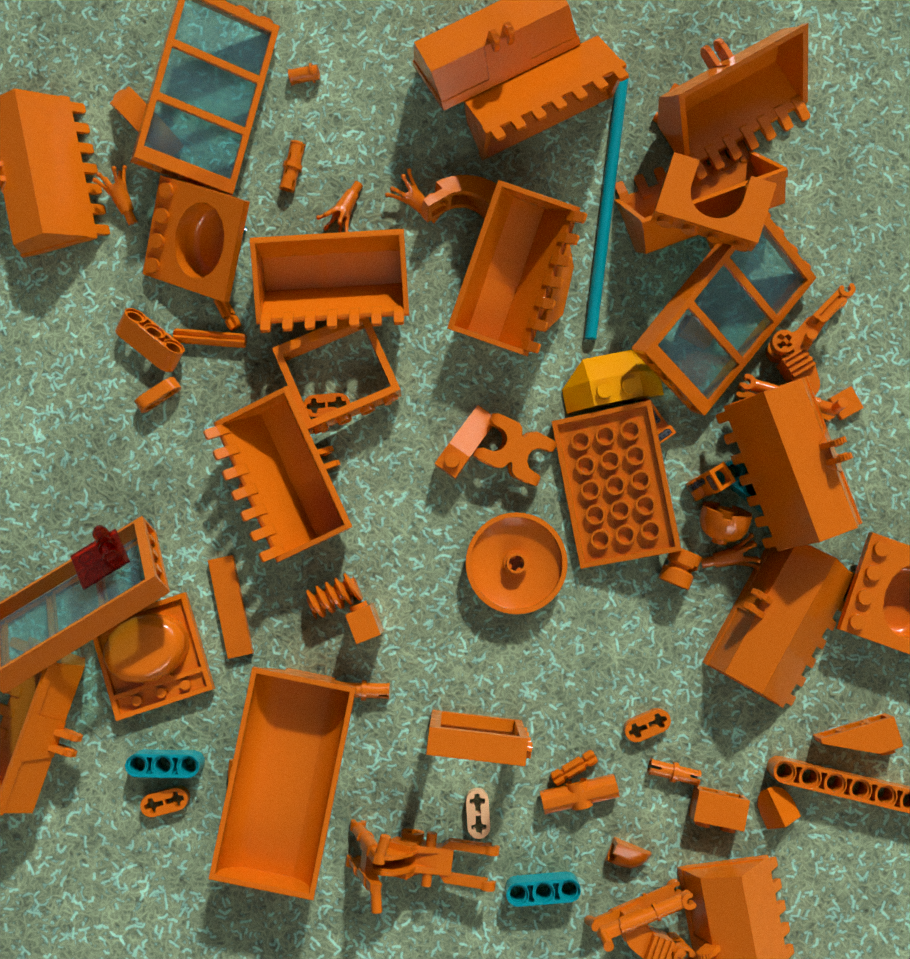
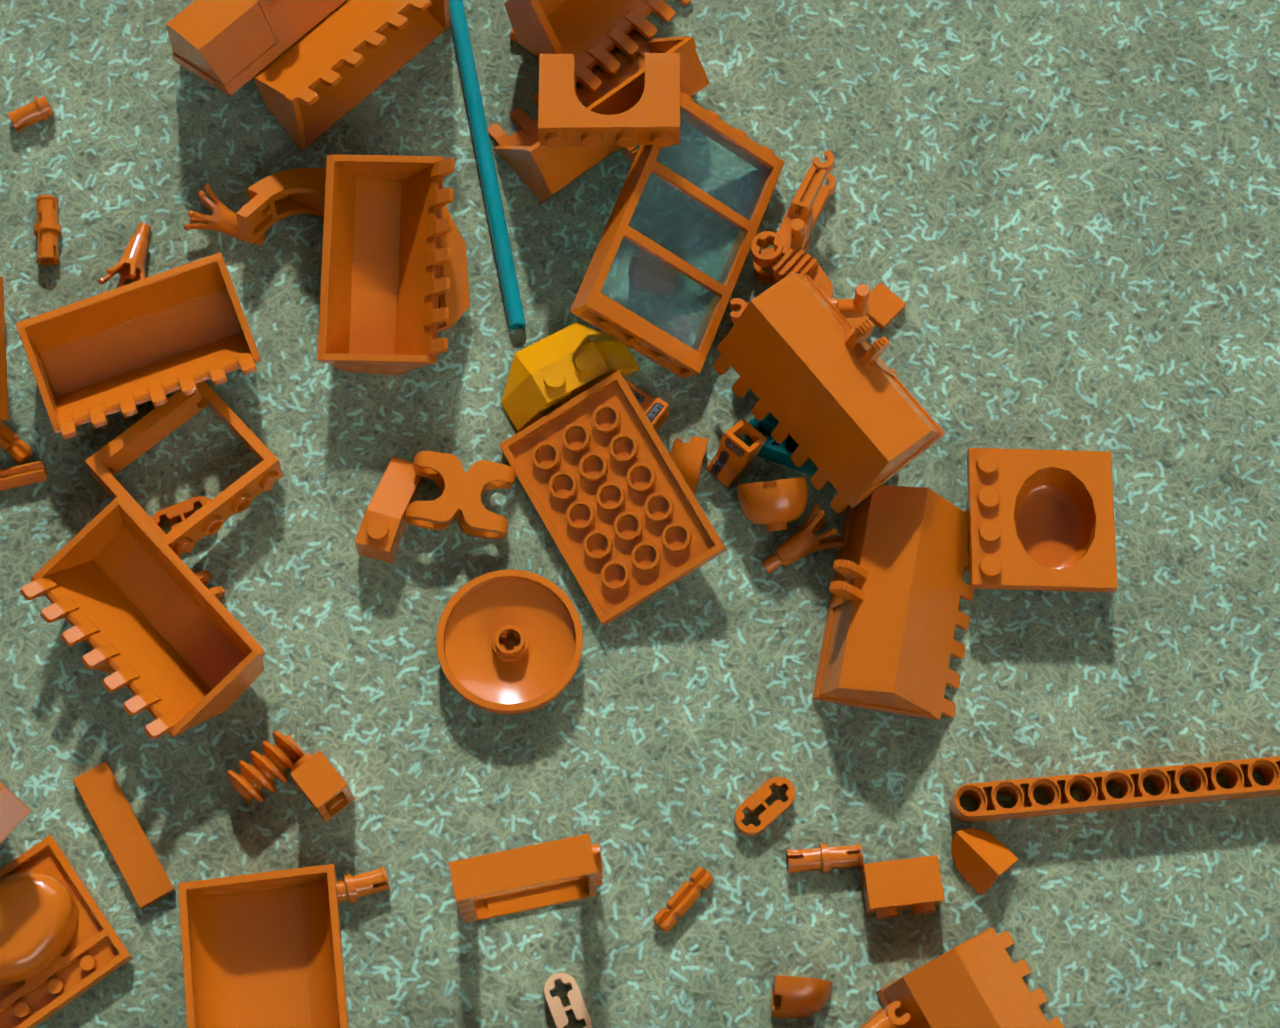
camera: 25 degrees left, 15 degrees down
(579, 794) = (701, 931): orange piece -> none
(677, 473) = (690, 458): none -> orange brick
(679, 568) = (735, 578): orange wheel -> none
(872, 735) = (1065, 721): orange slope -> none

